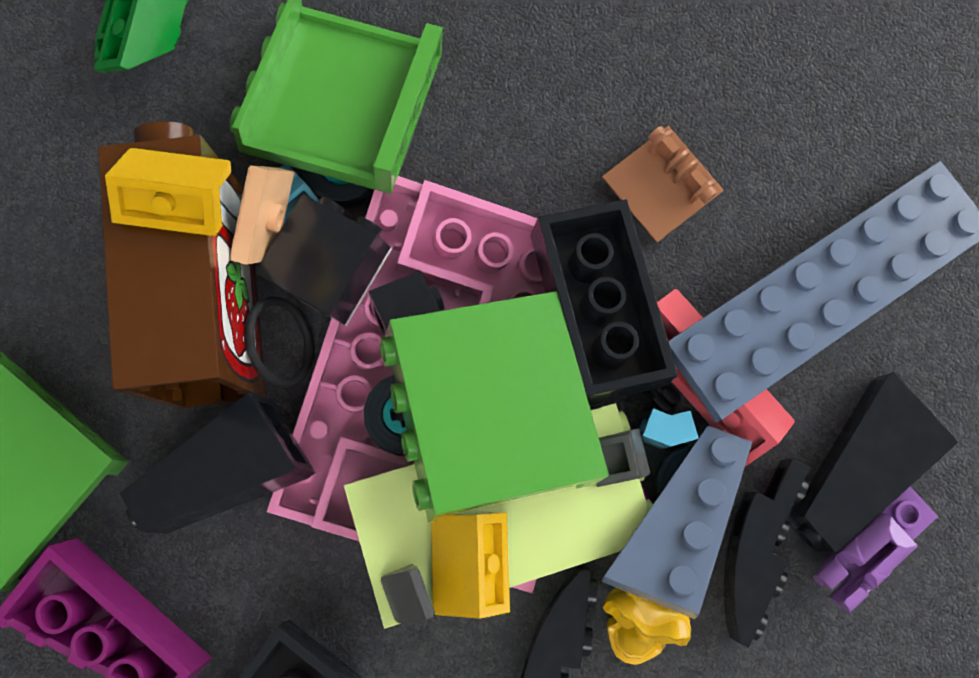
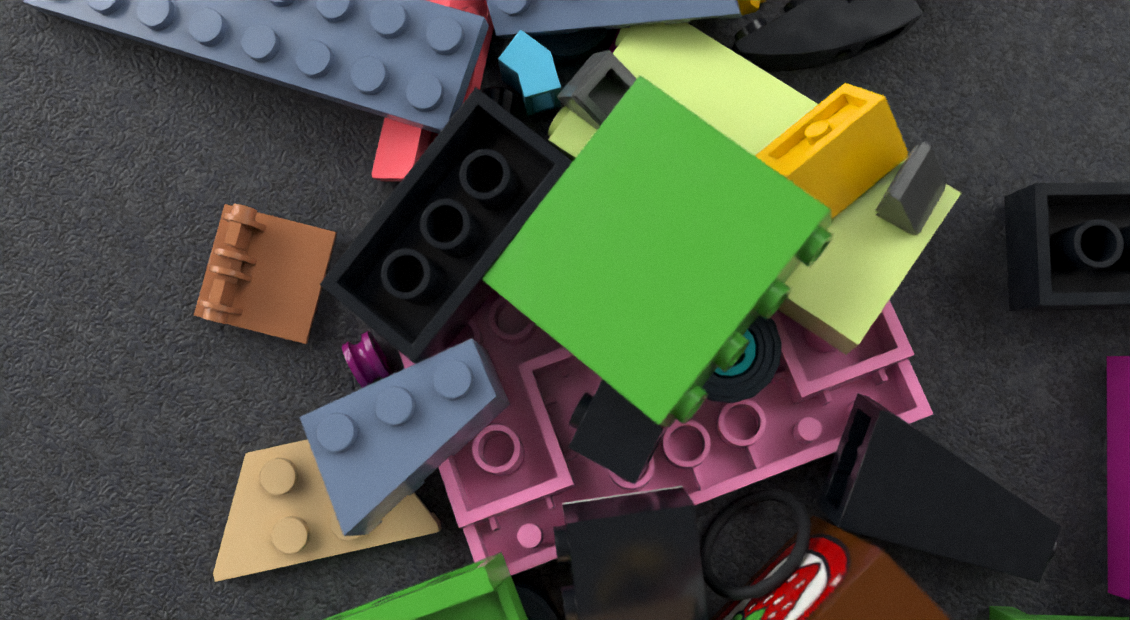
camera: 130 degrees left, 5 degrees up
(502, 118) = (287, 517): none -> tan wing
(505, 186) = (400, 430): none -> sand blue wedge
(562, 199) = (366, 360): none -> magenta bush

